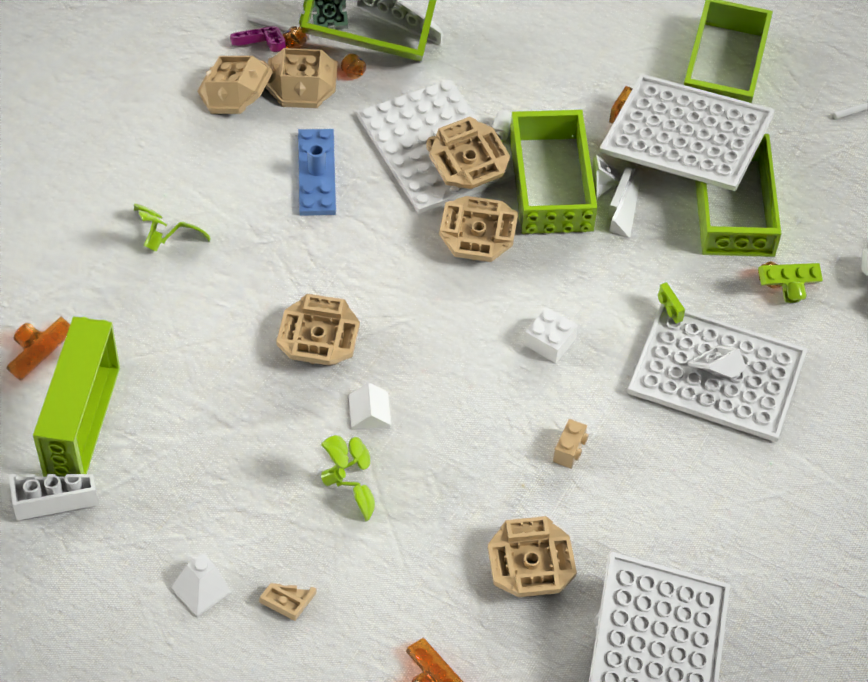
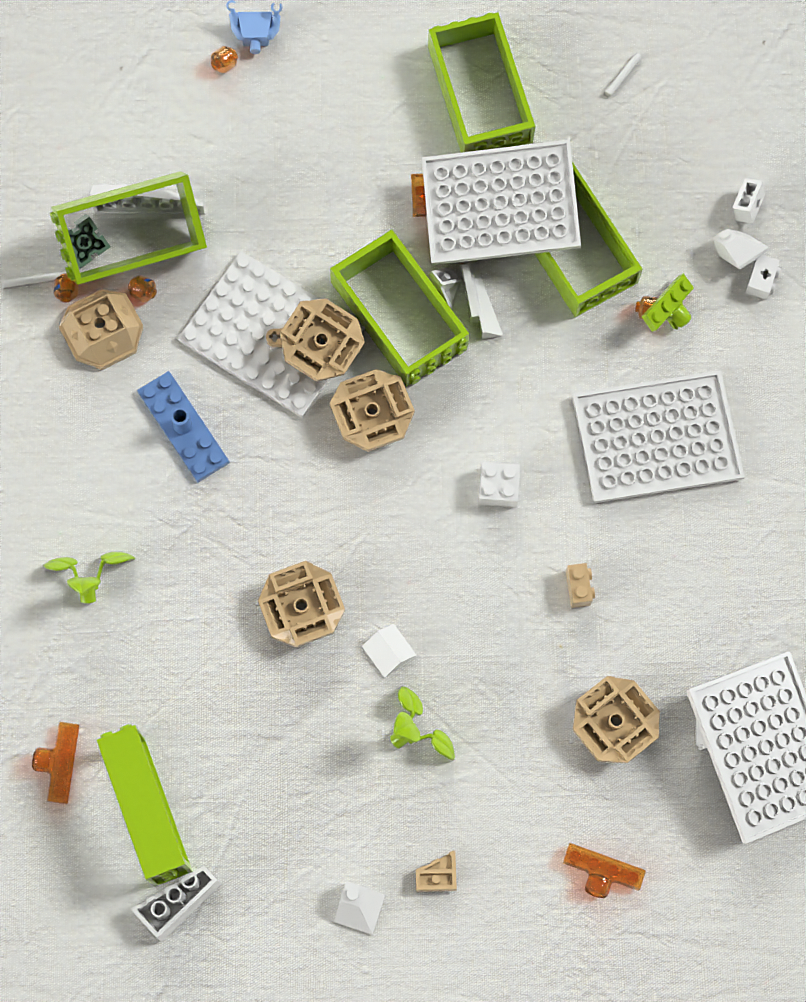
camera: 30 degrees left, 20 degrees up
(234, 84) = (59, 382): tan piece -> none
(269, 34) = (38, 299): magenta beam -> none
(502, 124) = (320, 278): white head -> none
(671, 302) = (579, 390): lime plate -> none
(720, 361) = (658, 432): white slope -> none

